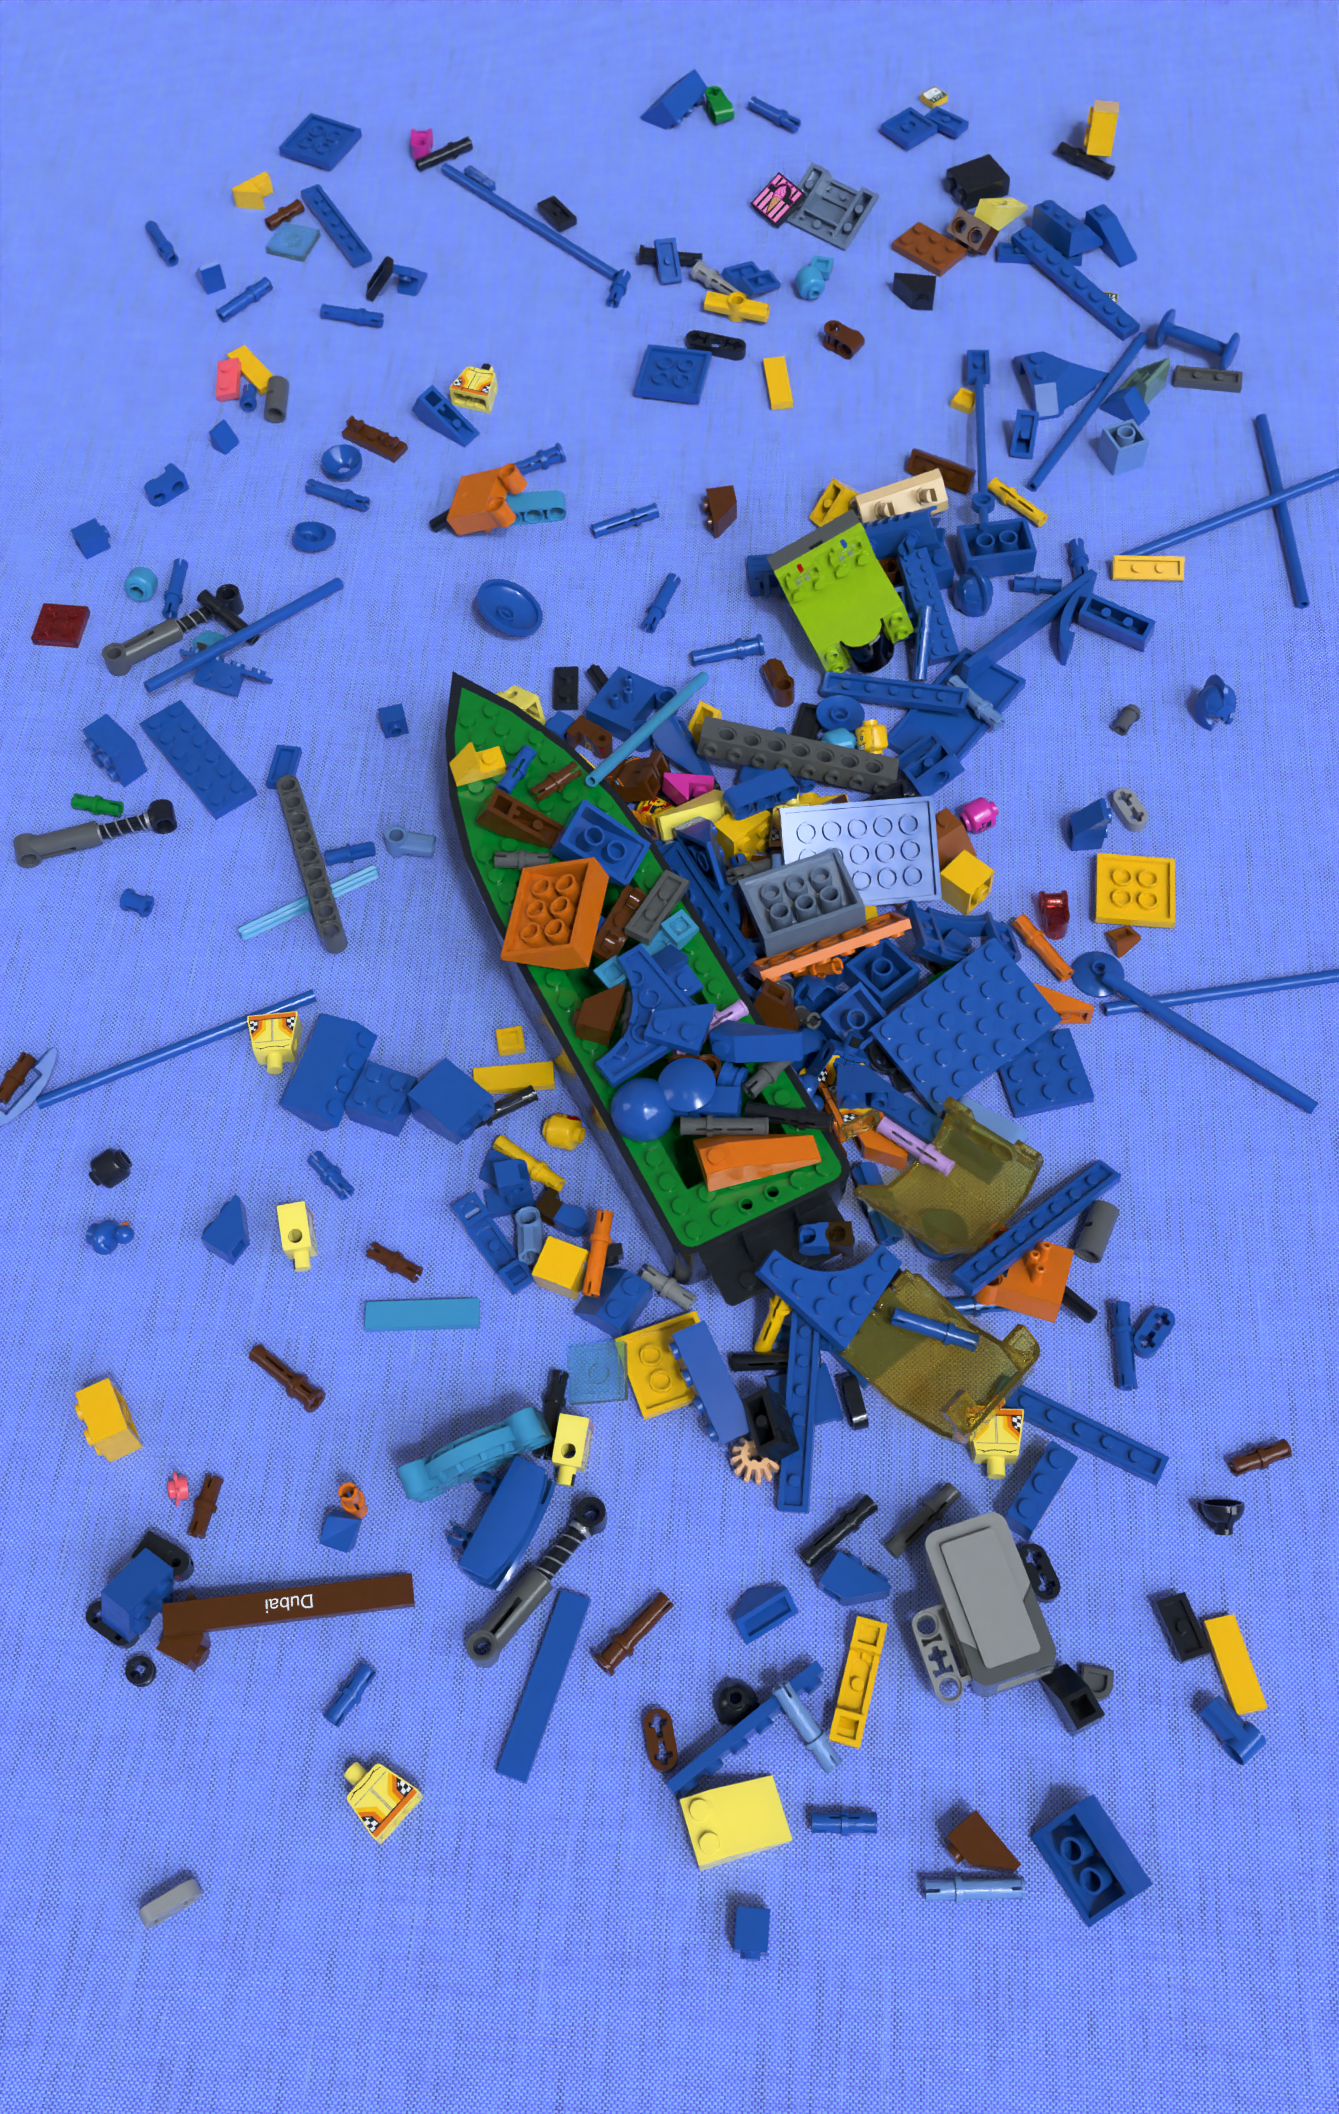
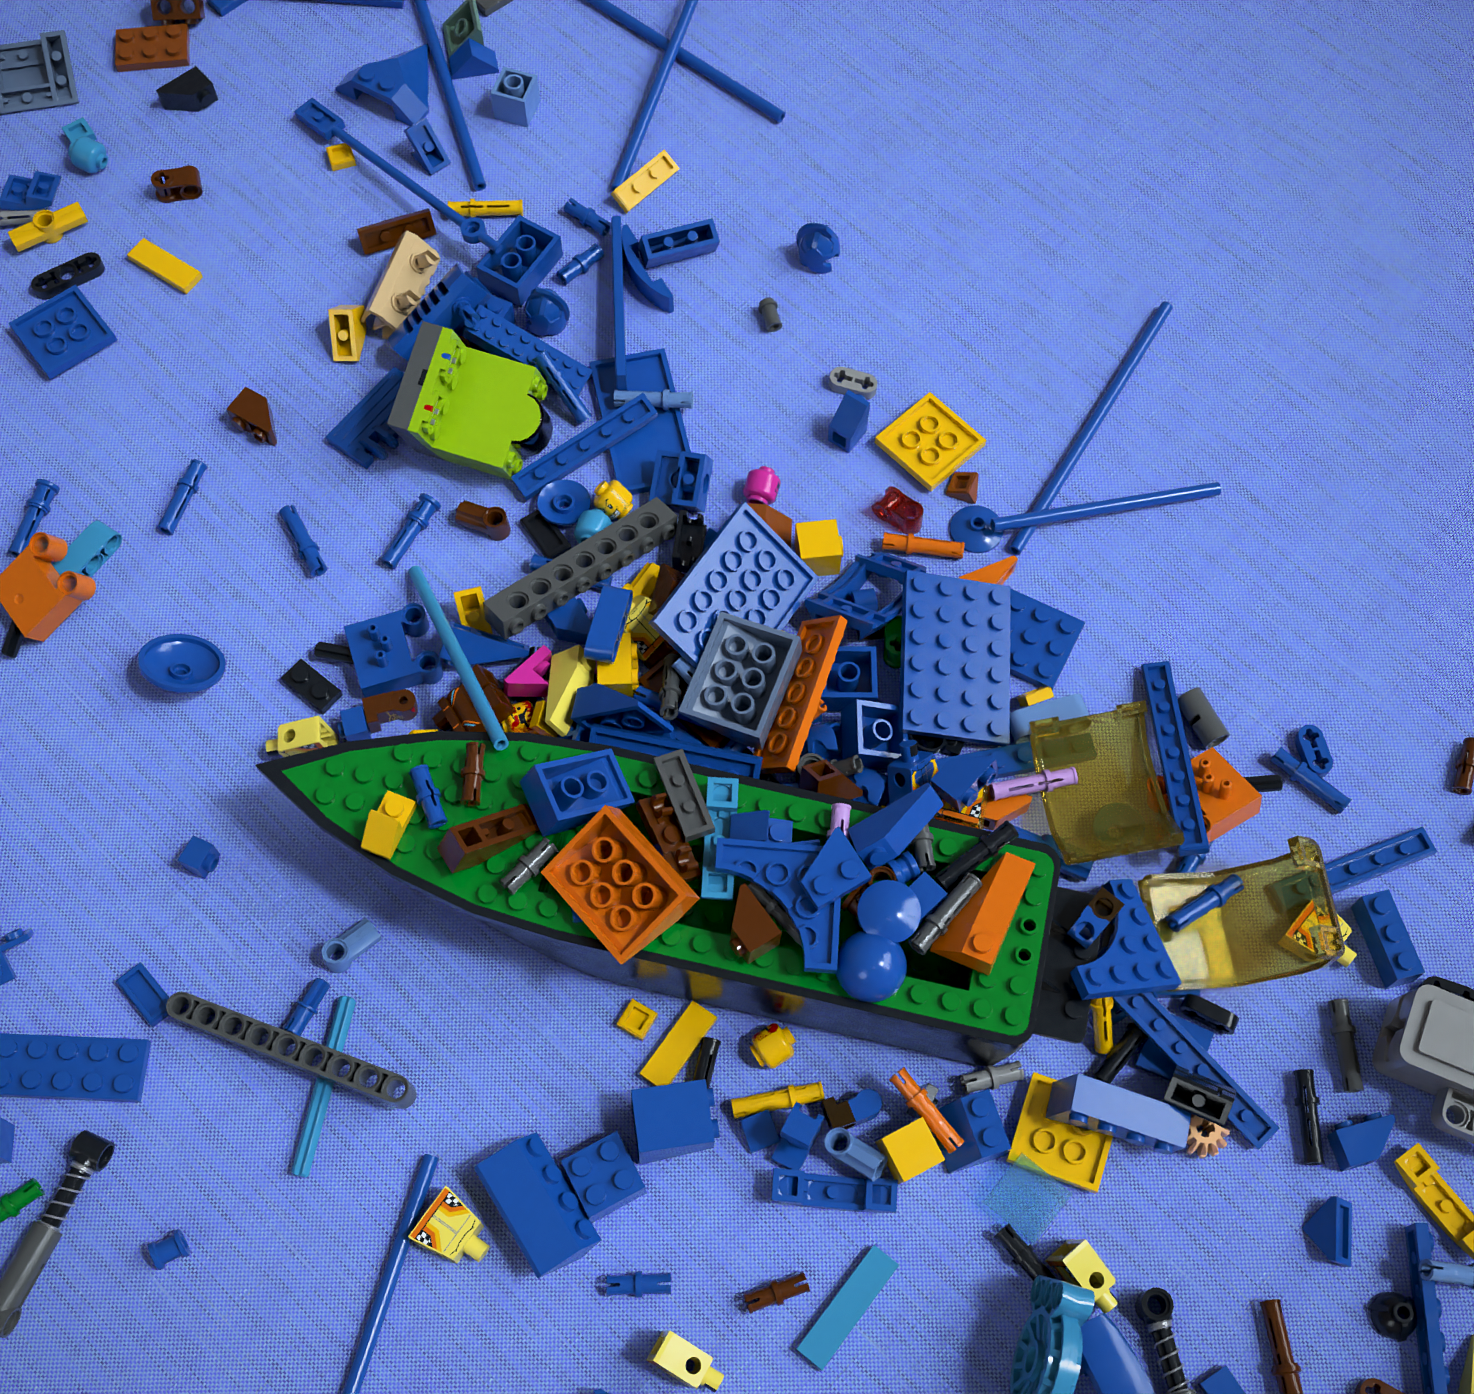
camera: 55 degrees left, 5 degrees up
(995, 1105) = (1035, 696): none -> yellow tile

